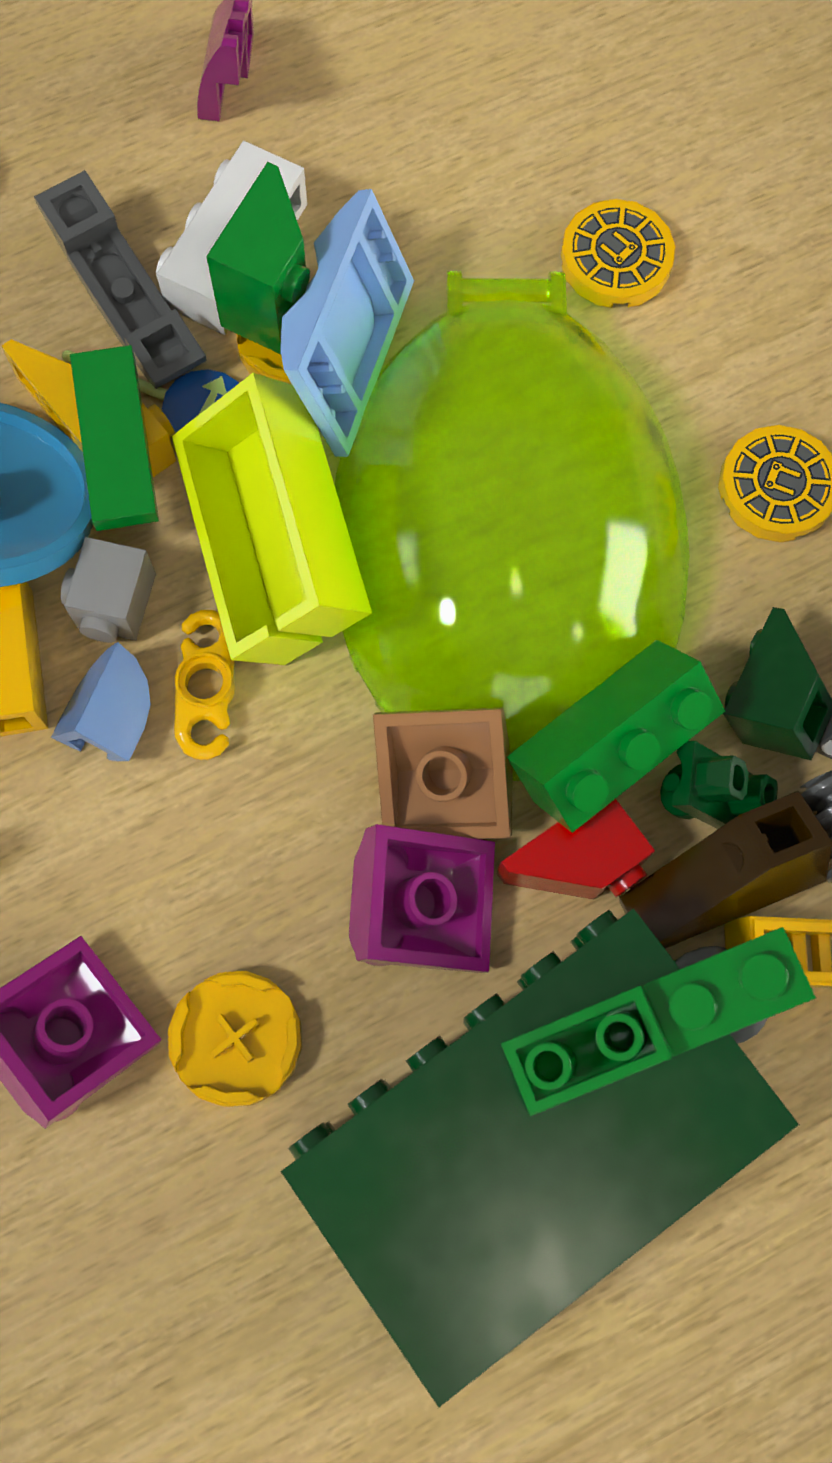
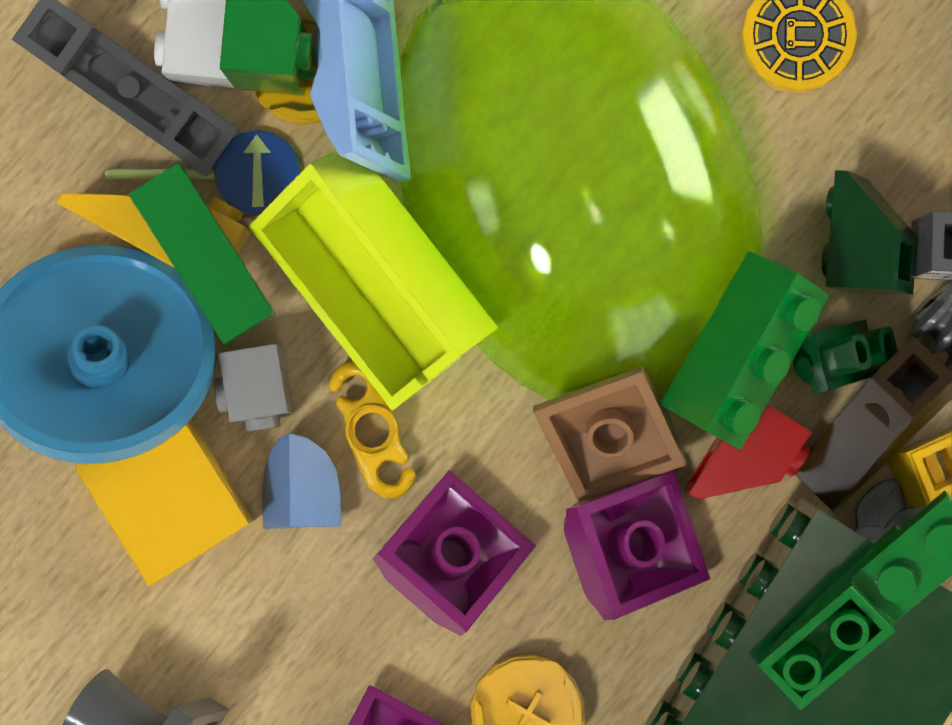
camera: 25 degrees left, 15 degrees up
(226, 833) = (452, 555): none -> magenta slope

